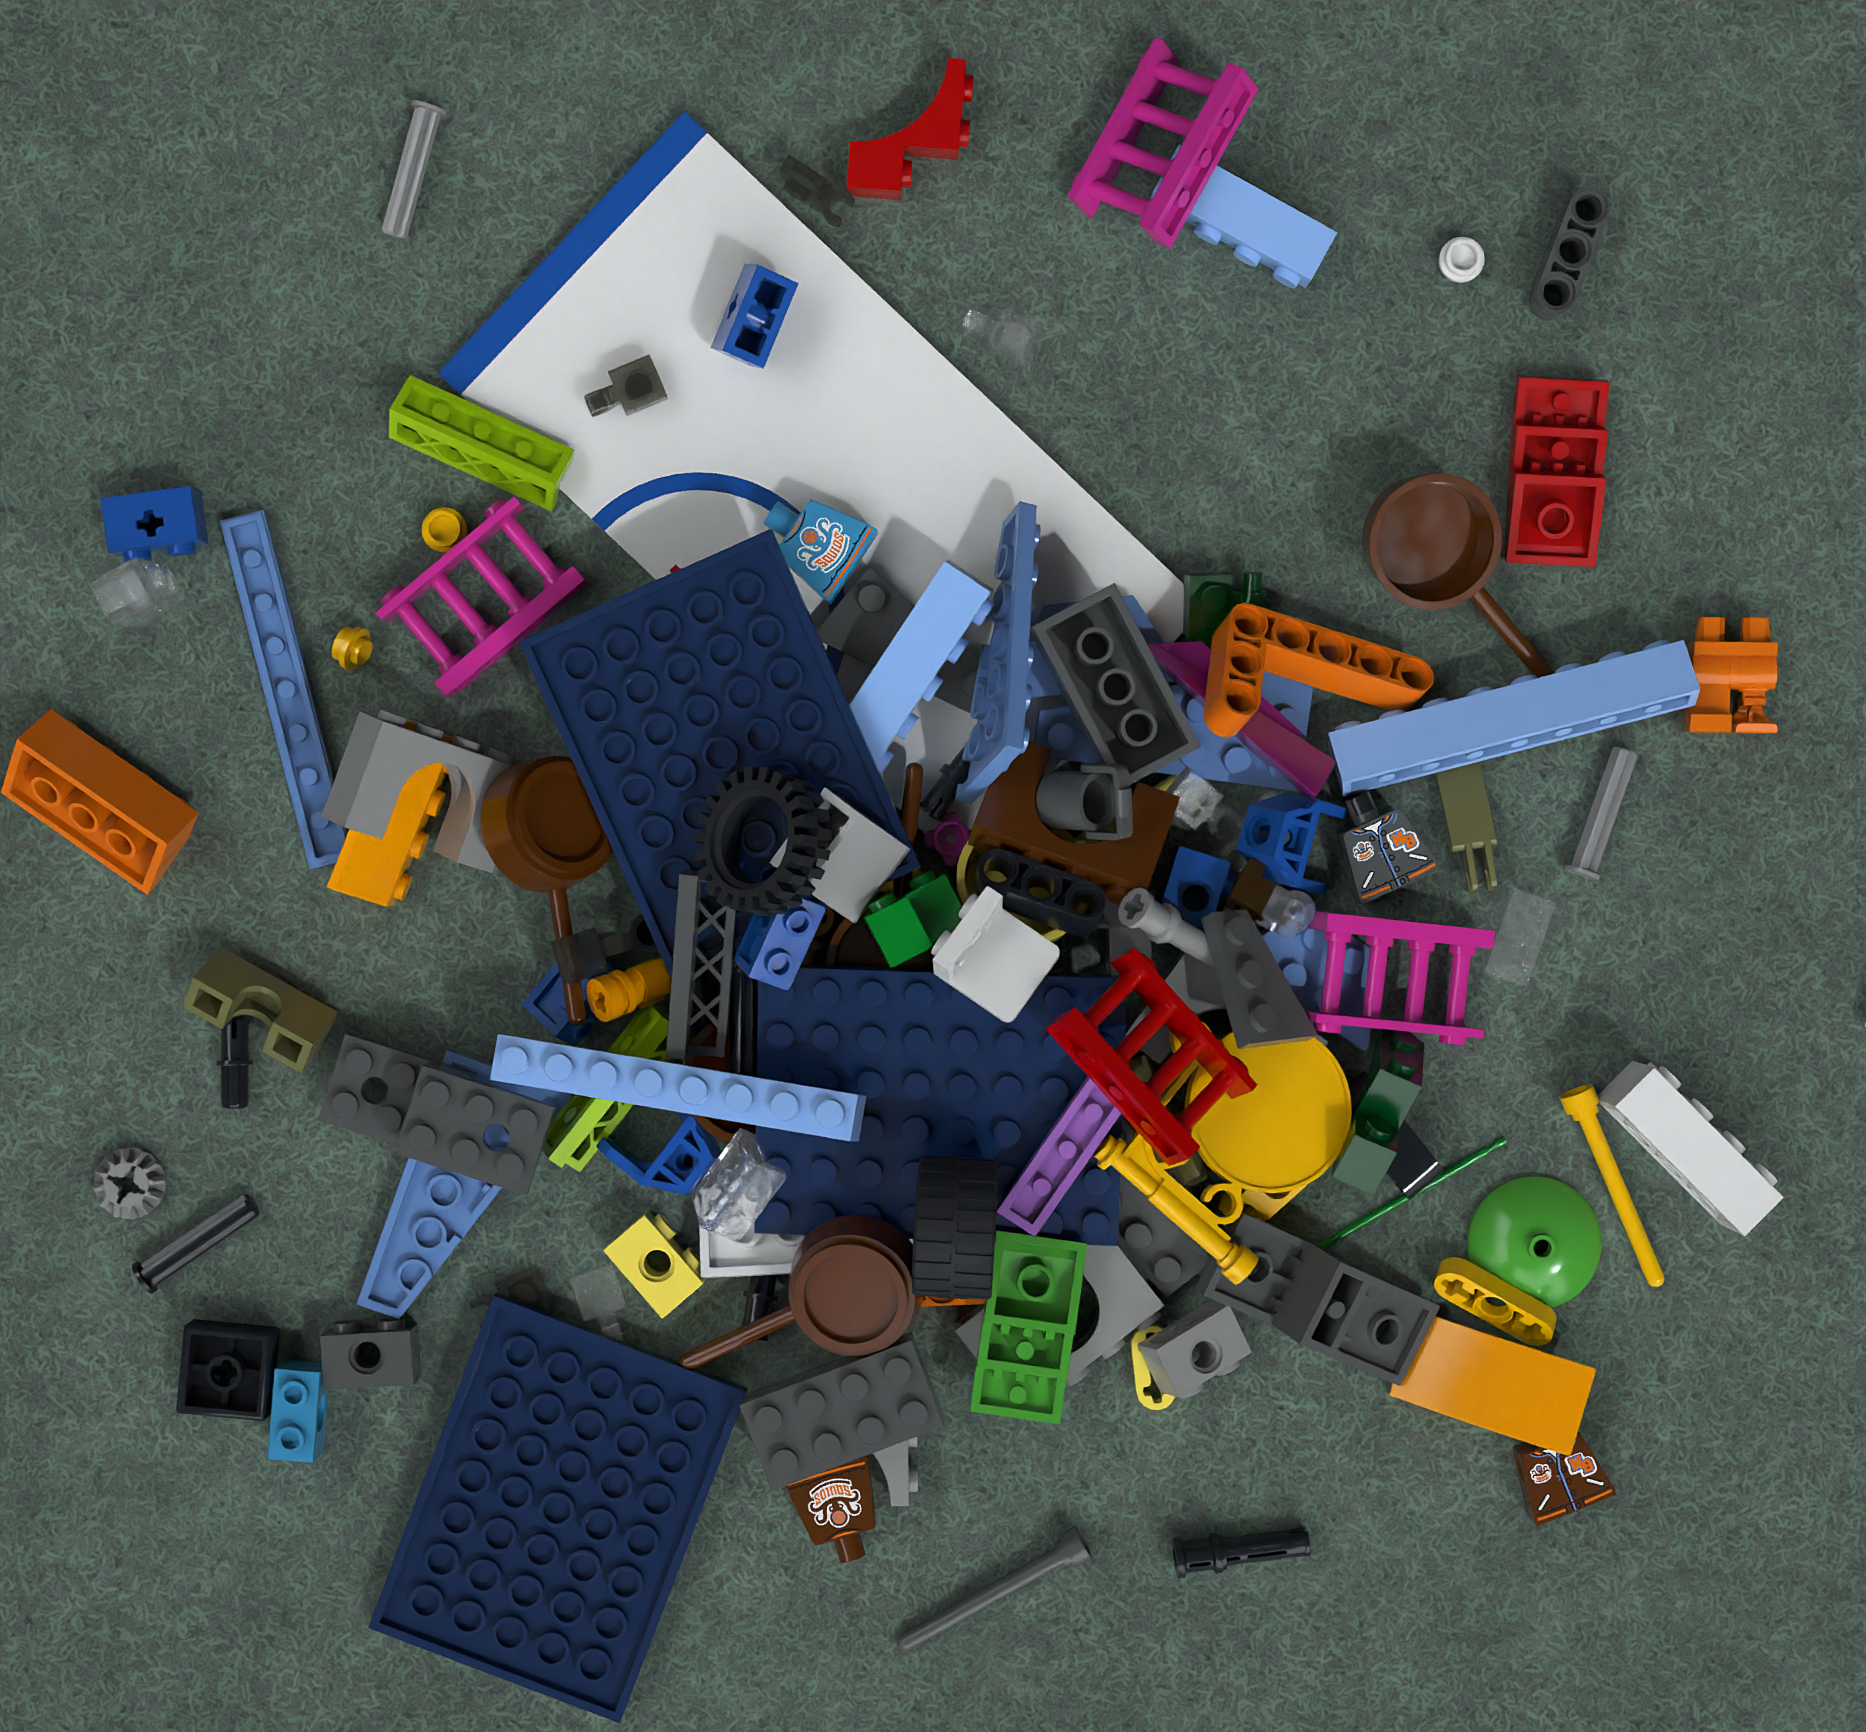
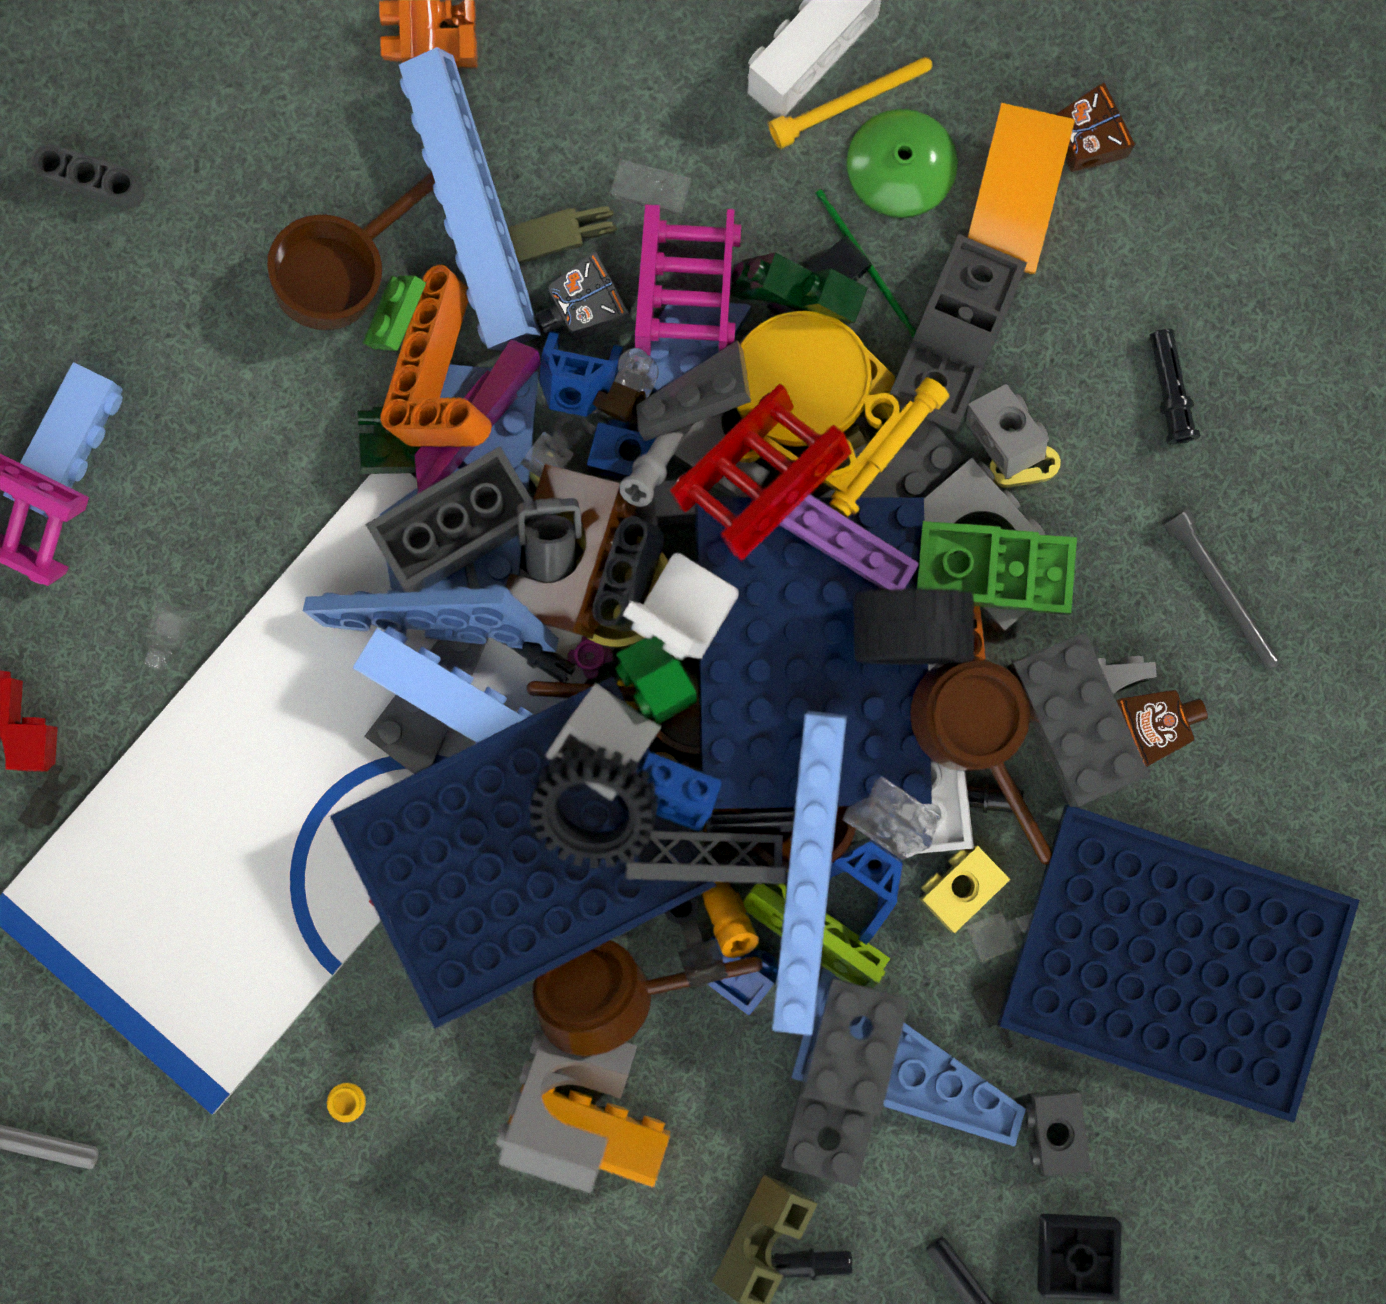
camera: 85 degrees left, 5 degrees down
(284, 682) = (484, 1234): medium blue tile -> none
(298, 1412) = (1111, 1193): dark azure brick -> none
(352, 647) = (449, 1177): yellow plate -> none
(481, 441) = (266, 1073): lime fence -> none
(524, 613) = (439, 1057): dark pink fence -> none
(633, 386) = (217, 944): clear smoke plate -> none
(754, 315) = (153, 842): blue brick -> none
(821, 545) = (345, 775): dark azure torso -> none
(1378, 621) = (394, 312): none -> bright green plate
(1461, 259) = (95, 263): white plate -> none
(1517, 1325) = (964, 168): yellow beam -> none
(1556, 471) = (266, 177): red slope -> none
(1603, 813) = (546, 126): light grey axle -> none

